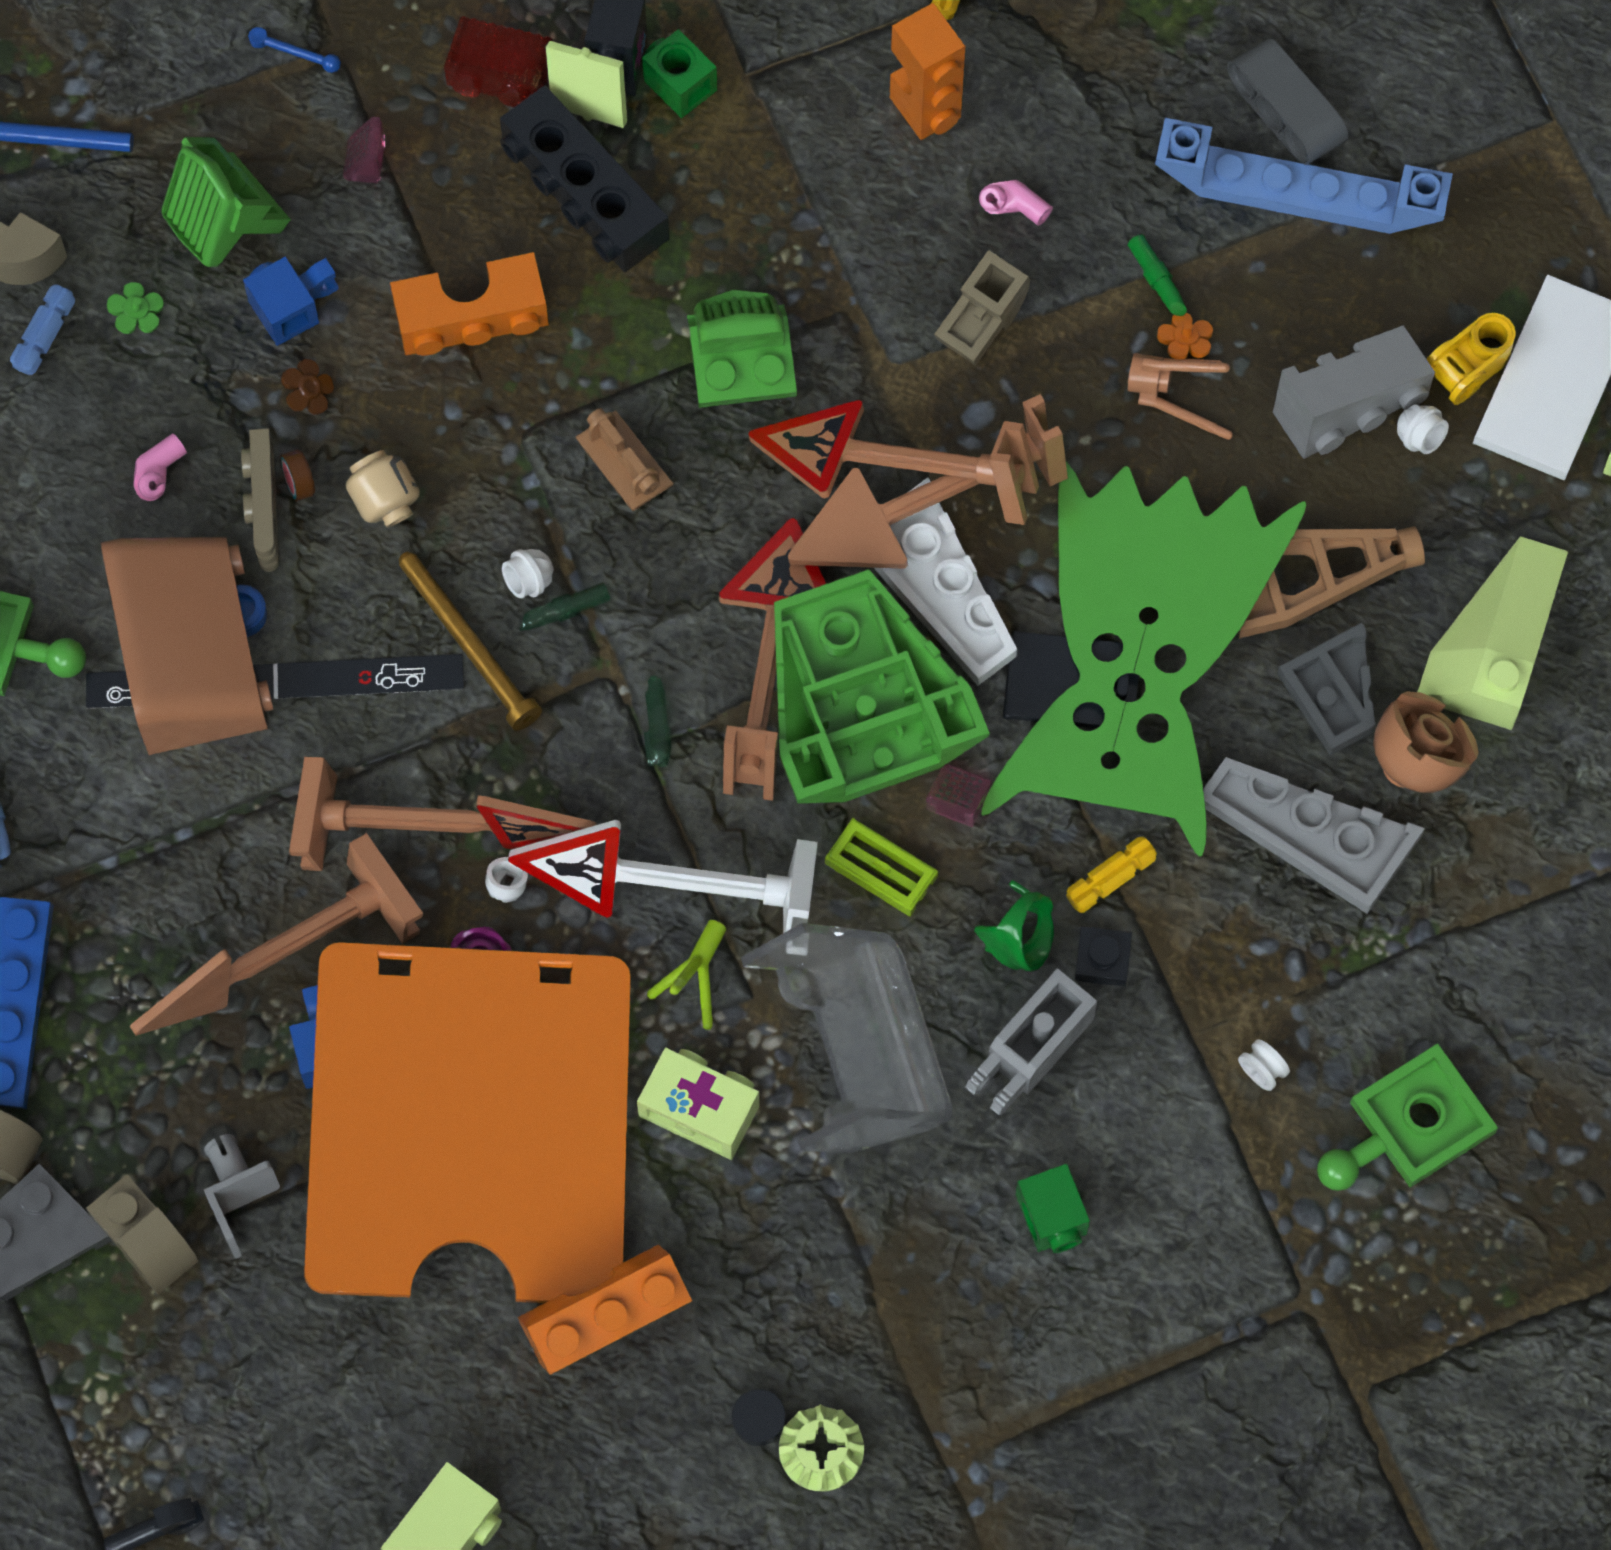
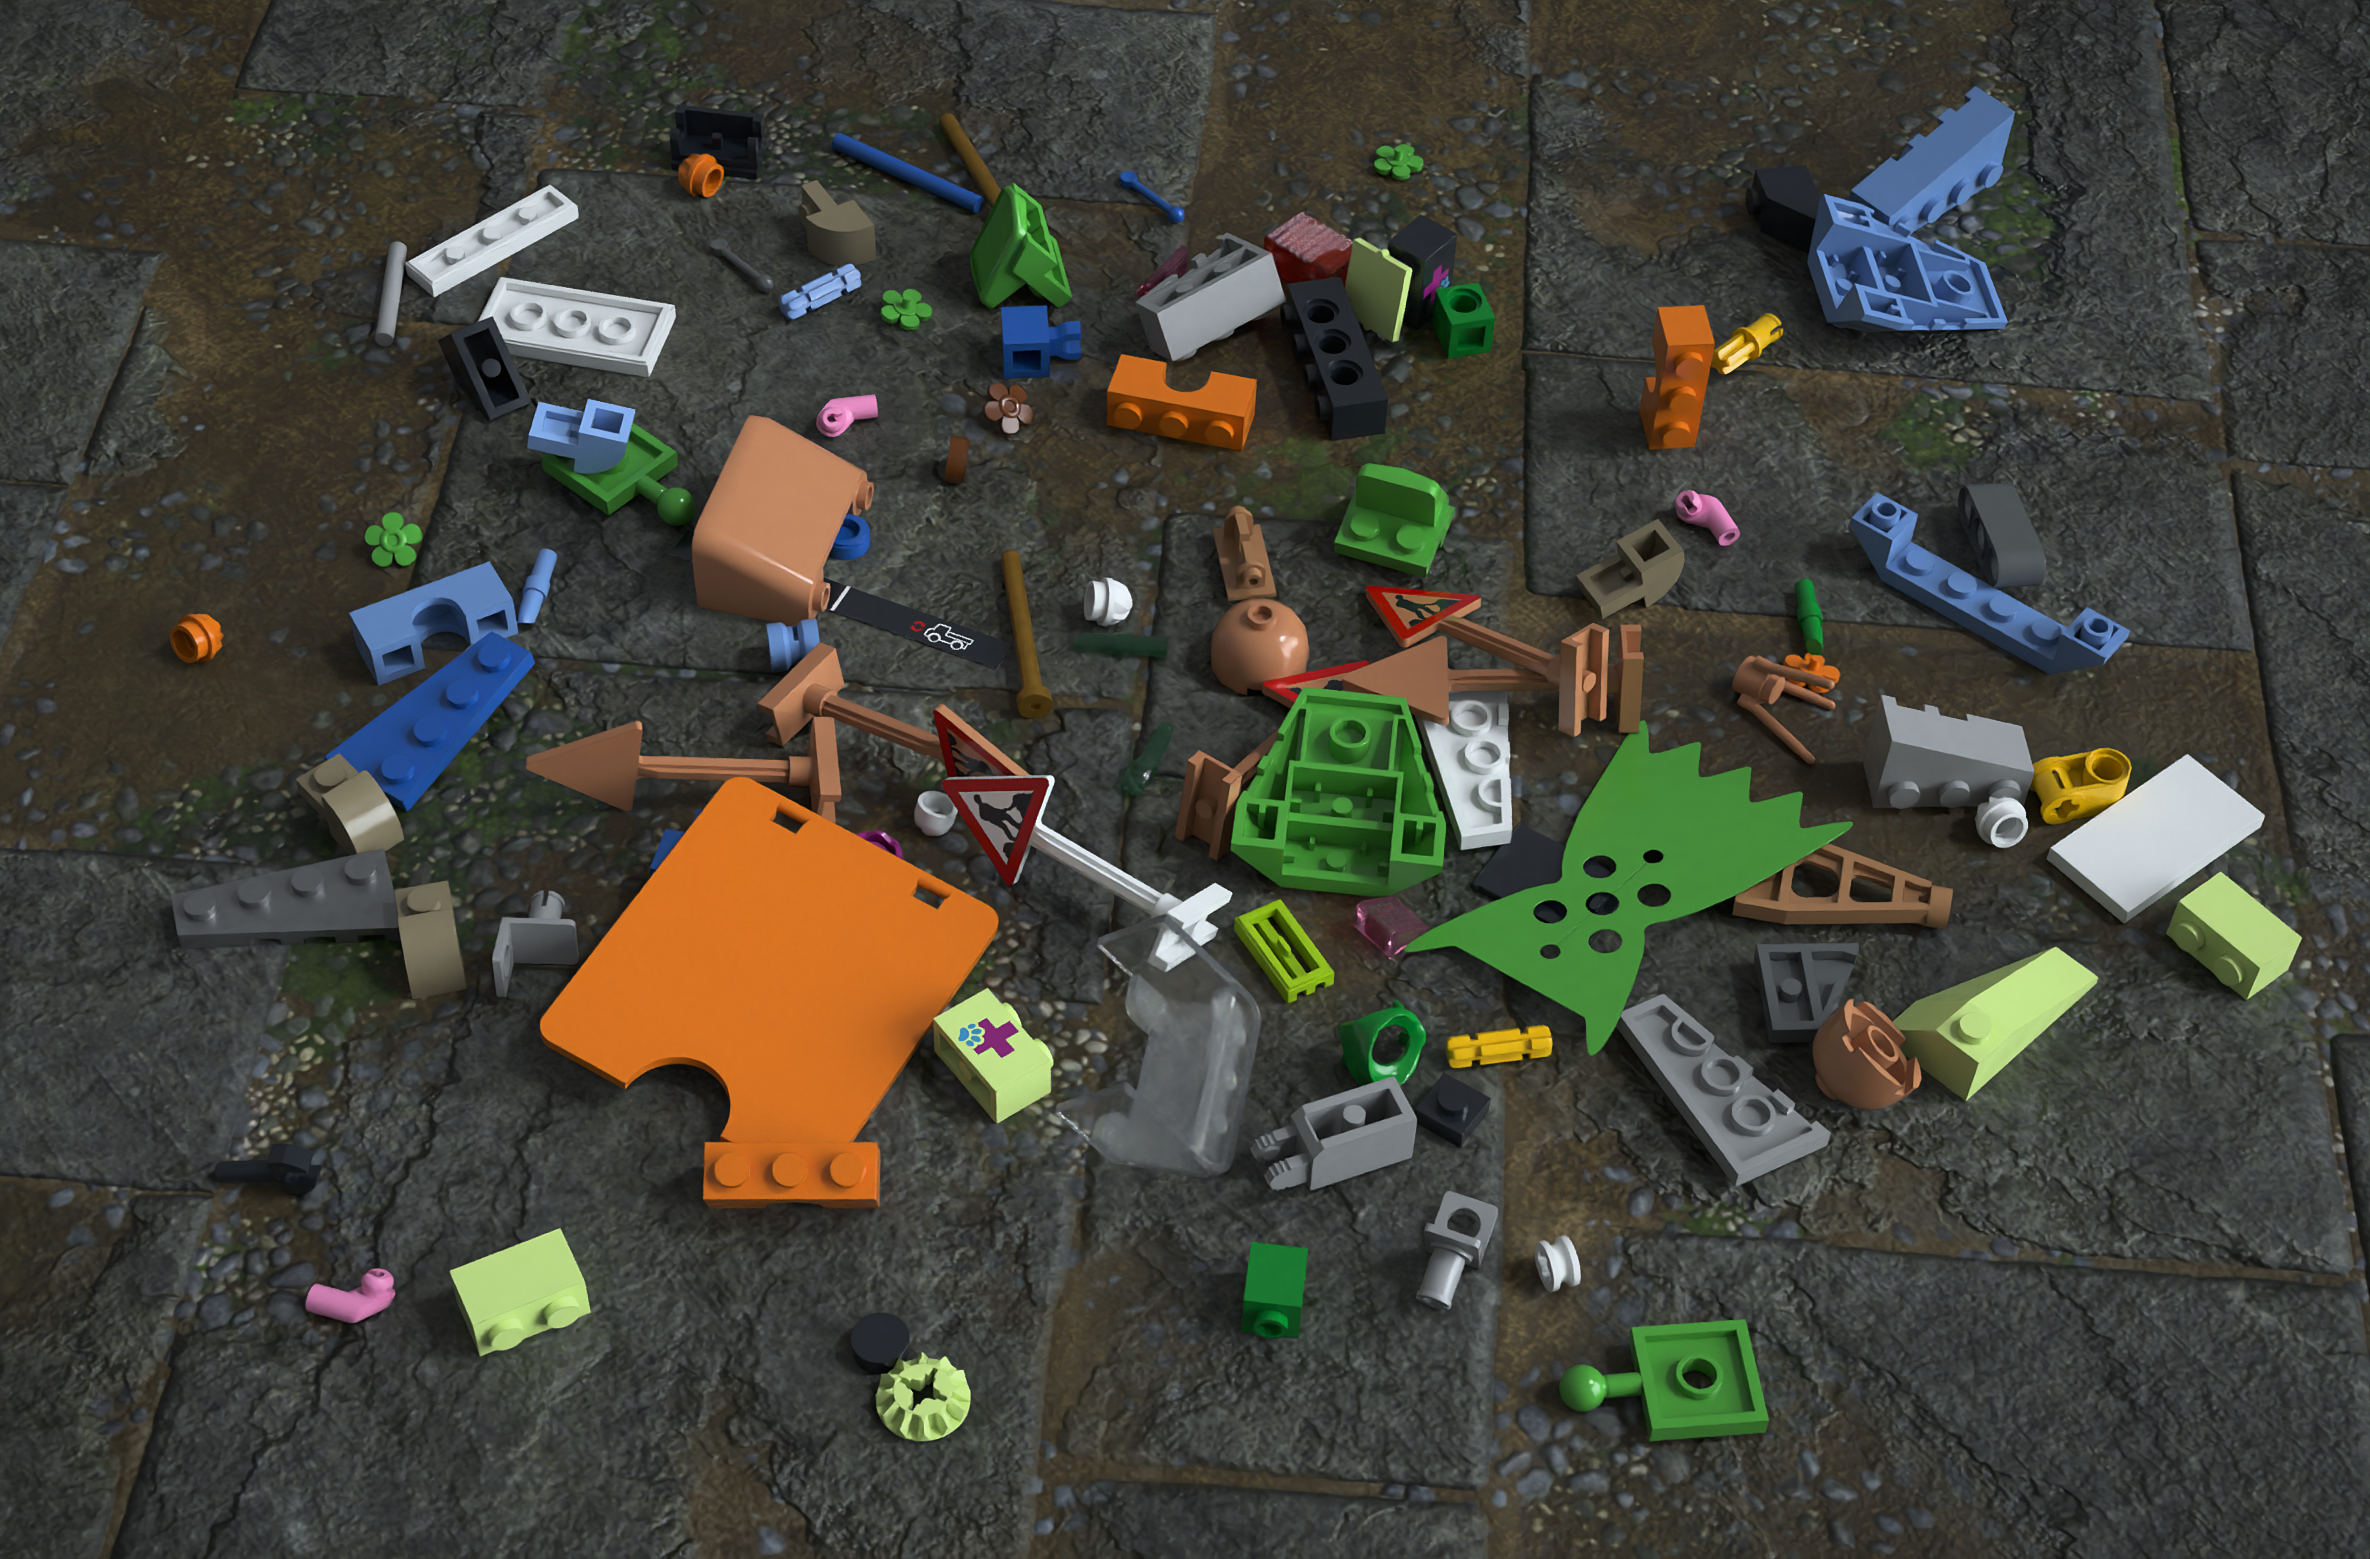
camera: 25 degrees right, 20 degrees down
(107, 100) = (970, 157): none -> pearl gold bar
(261, 504) = (917, 463): dark tan hinge -> none
(272, 763) = (790, 643): none -> medium blue wheel
(382, 488) = (1021, 494): tan head -> none
(434, 168) = (1210, 299): none -> light grey wedge
(691, 555) = (1258, 644): none -> nougat cylinder
(699, 962) = (1065, 948): lime plant -> none
(1173, 1095) = (1452, 1249): none -> light grey bracket

